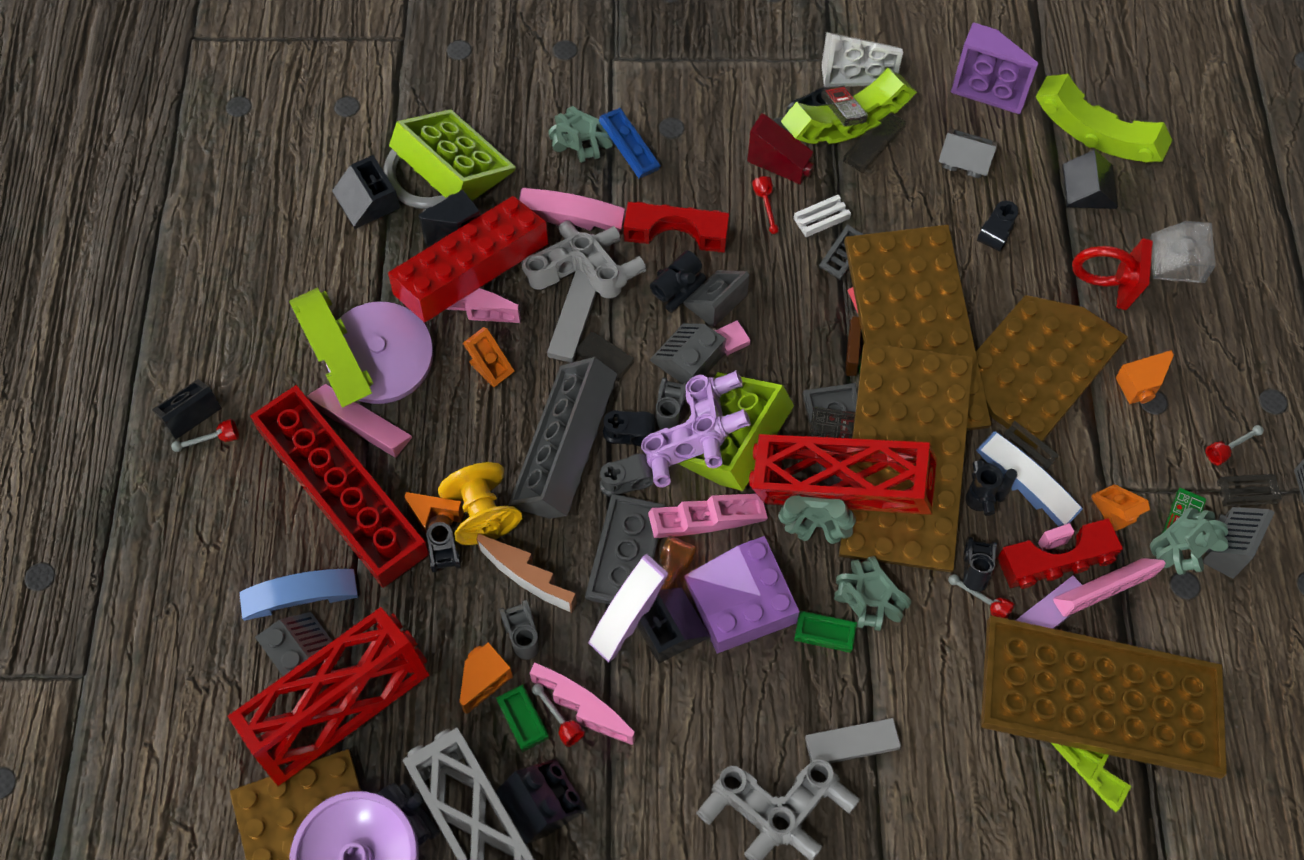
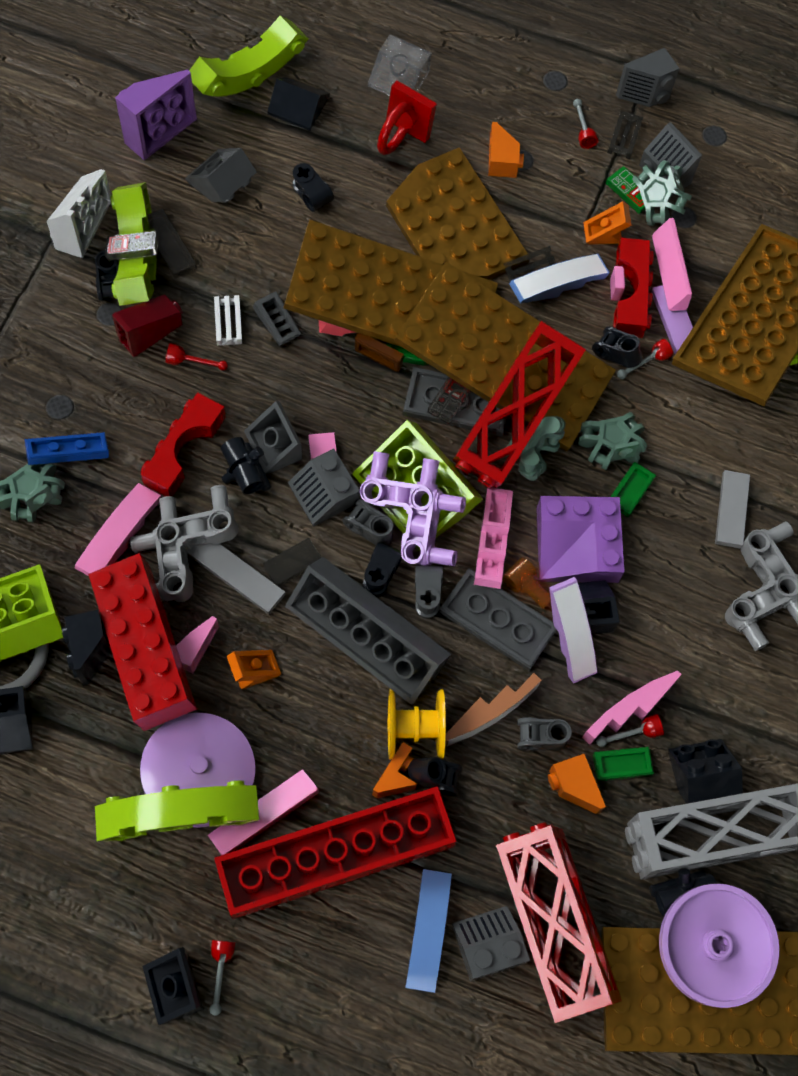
camera: 75 degrees left, 5 degrees up
(988, 487) = (561, 308): black pin -> none

